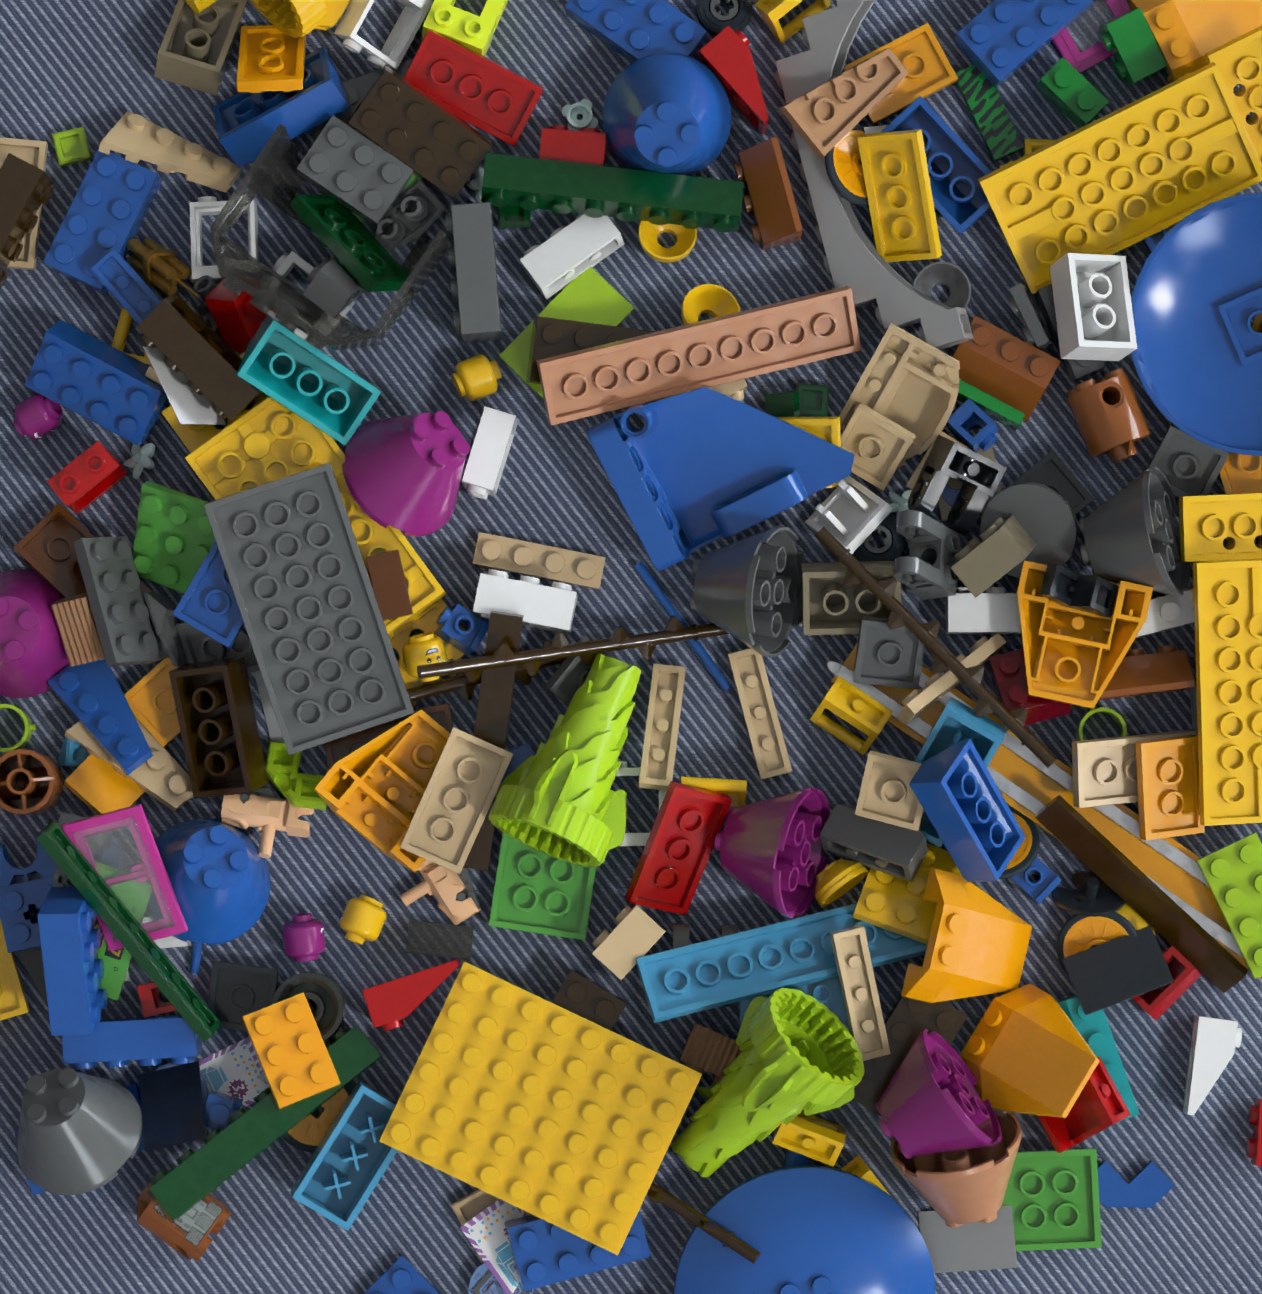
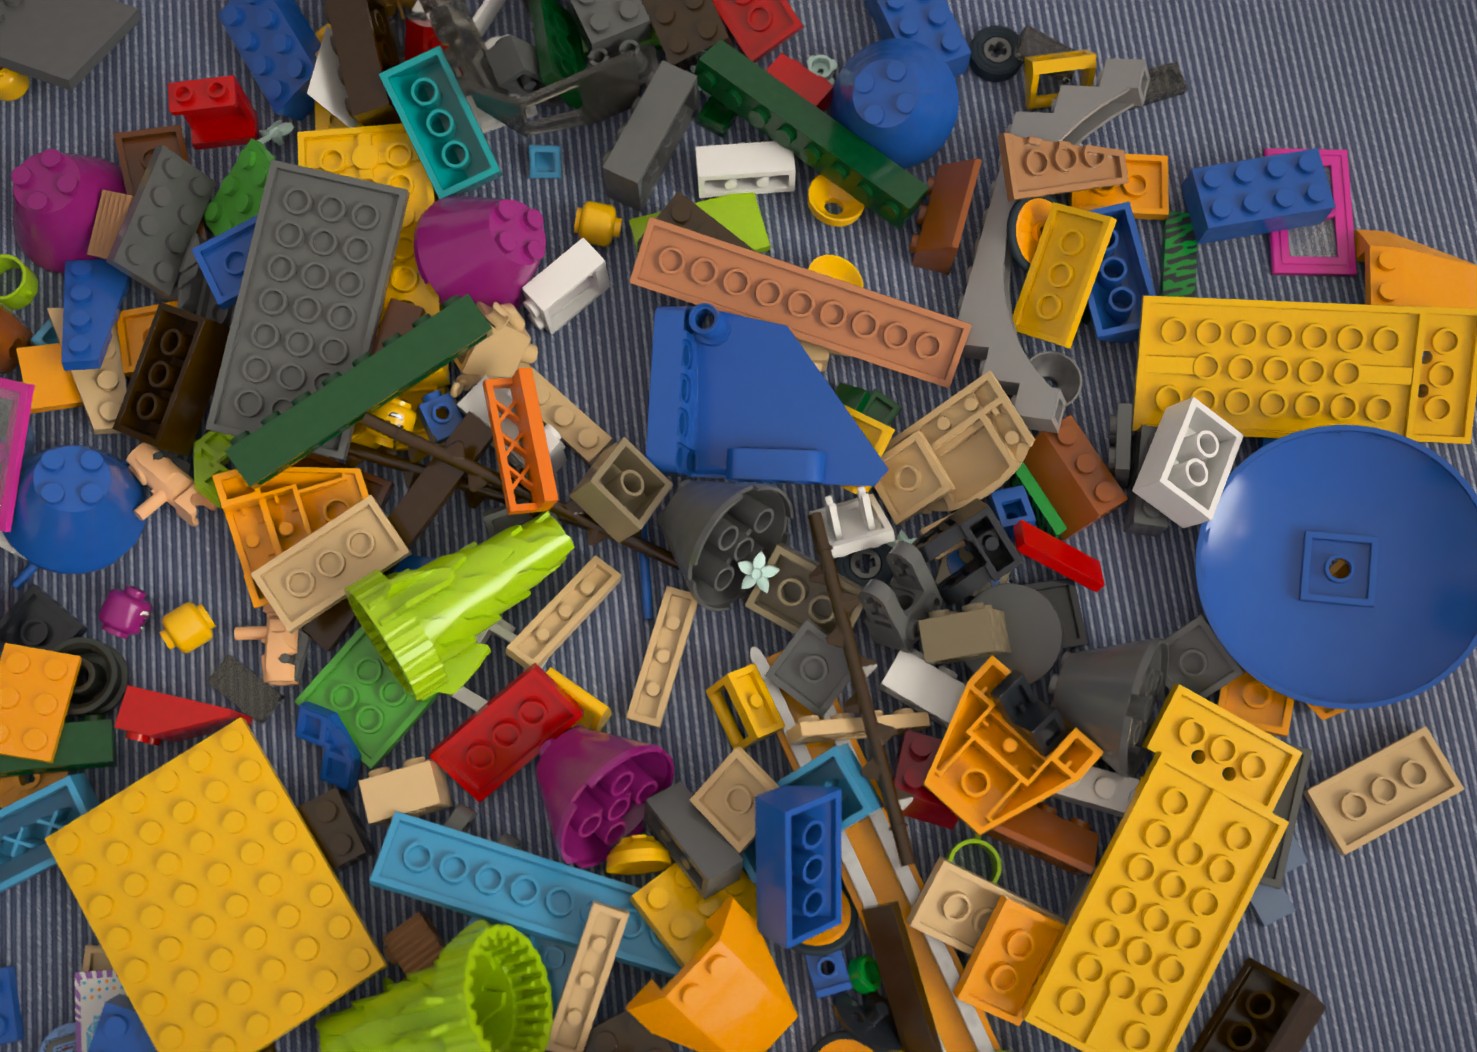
camera: 30 degrees right, 10 degrees down
(37, 416) = (214, 50): magenta head -> none
(394, 346) = (545, 161): none -> dark azure slope
(400, 649) = (363, 389): none -> dark green brick
(463, 543) = (498, 353): none -> tan torso
(532, 931) = (327, 730): none -> blue tile
(557, 605) = (533, 442): none -> orange fence
(650, 601) = (621, 490): none -> dark tan brick
(734, 66) = (977, 84): red slope -> none
(800, 604) = (757, 572): none -> light aqua plant
(1031, 442) = (1058, 556): none -> red tile
(1065, 864) = (864, 974): none -> green tile
(1072, 93) = (1264, 274): green brick -> none
(1108, 416) = (1145, 574): dark orange cylinder -> none
(1132, 46) = (1342, 270): green brick -> none

